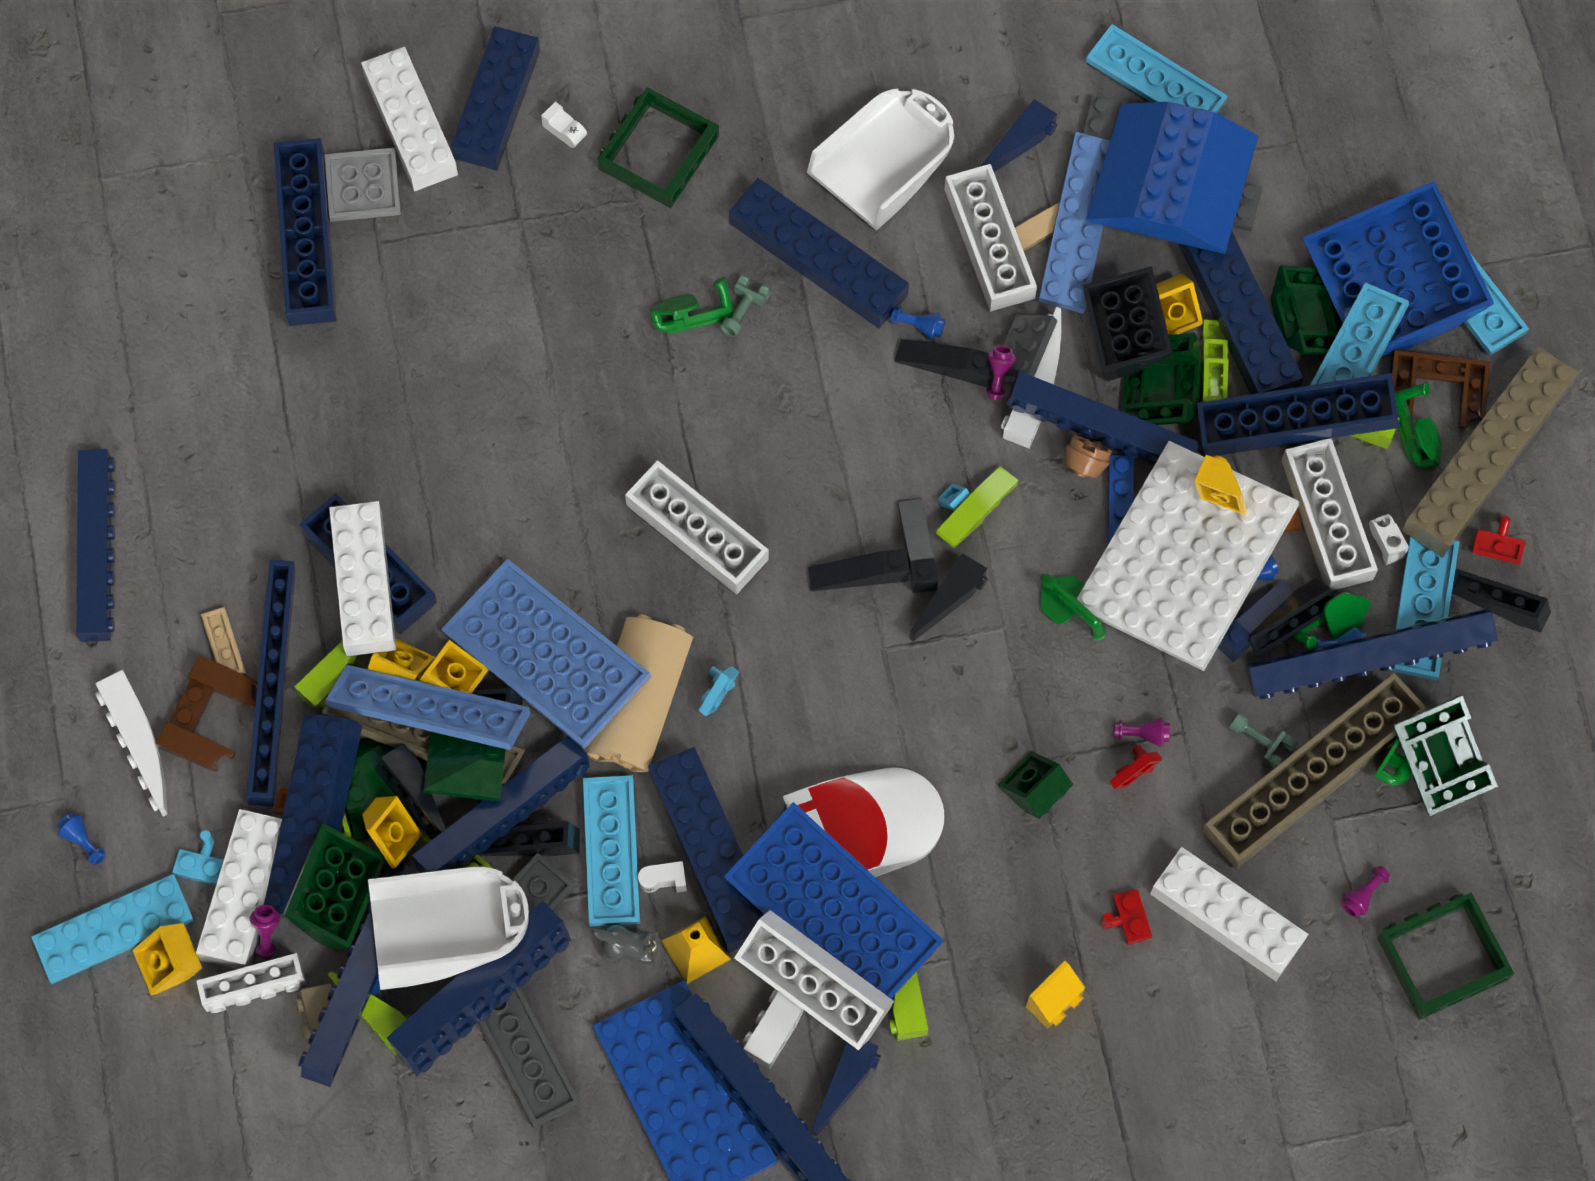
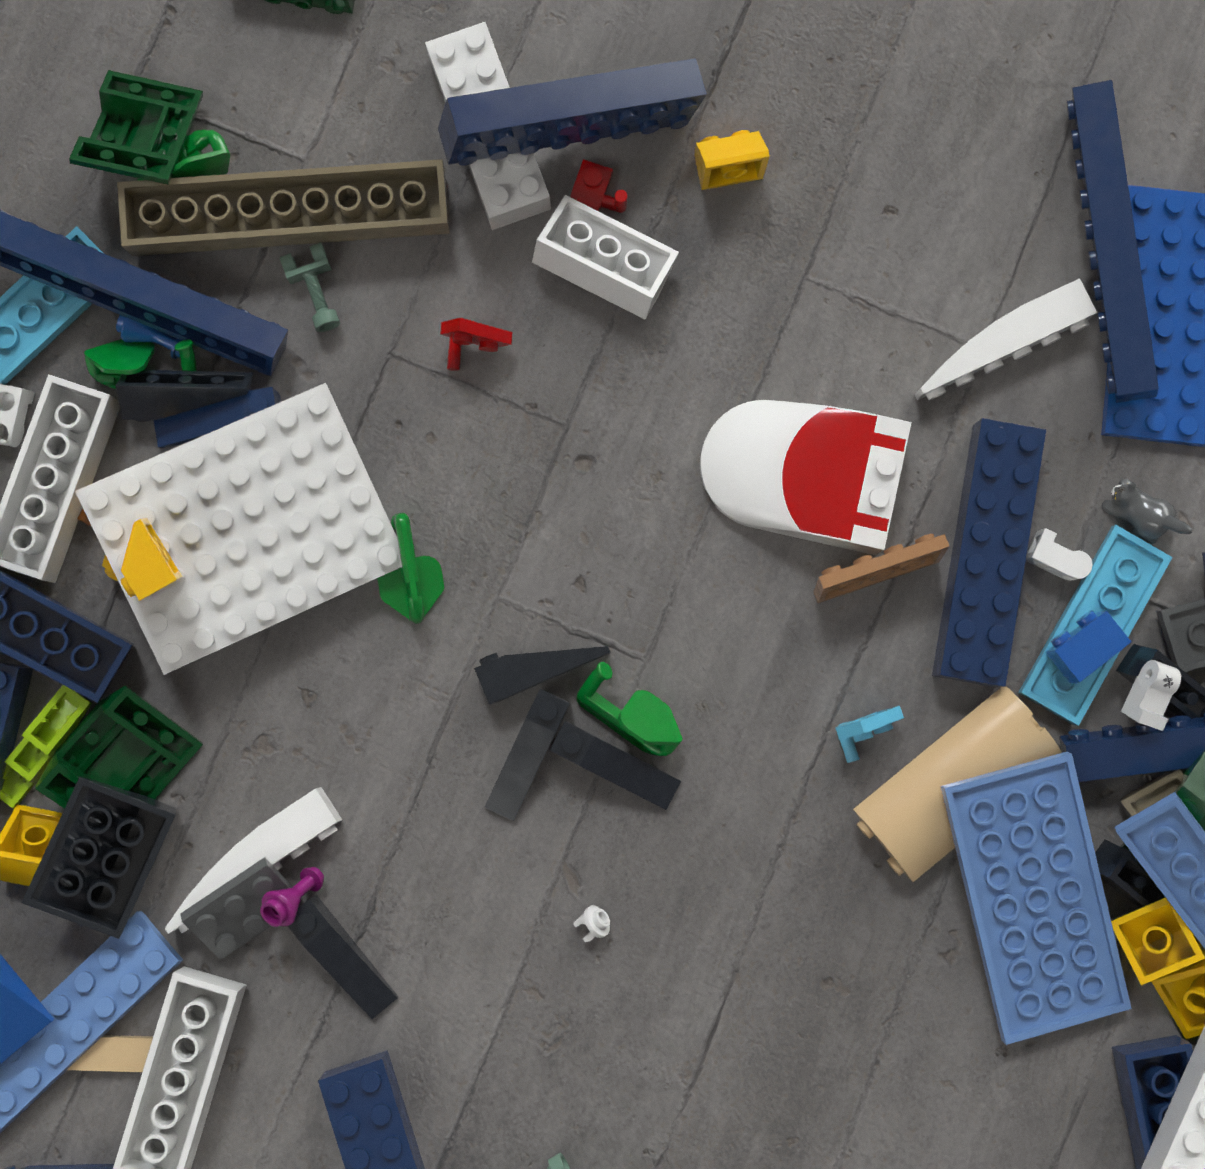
camera: 145 degrees left, 15 degrees up
(554, 811) = (1152, 694): none -> white leg
(611, 825) = (1087, 646): none -> blue brick
(696, 950) = (1072, 460): yellow slope -> none
(697, 527) = (766, 940): white brick -> none
(772, 796) = (870, 571): none -> medium nougat plate
(806, 473) = (596, 921): none -> white plate
(814, 979) = (989, 319): white brick -> none
(833, 901) = (914, 387): blue plate -> none
(849, 1075) = (993, 222): dark blue slope -> none
(859, 607) = (643, 720): none -> green piece
(908, 1012) = (892, 246): lime slope -> none
(928, 324) = (328, 1015): blue piece -> none
(953, 497) = (449, 781): medium azure plate -> none
(977, 507) = (431, 751): lime slope -> none
(1036, 784) = (591, 396): dark green slope -> none
(1086, 457) = (268, 725): medium nougat cone -> none
(1091, 877) = (604, 256): none -> white slope
(1092, 419) = (228, 761): dark blue brick -> none
(1119, 491) = (263, 661): blue plate -> none
(1154, 731) = (421, 370): magenta piece -> none
(1176, 940) = (570, 111): none -> dark blue brick
(1357, 901) = (342, 56): magenta piece -> none

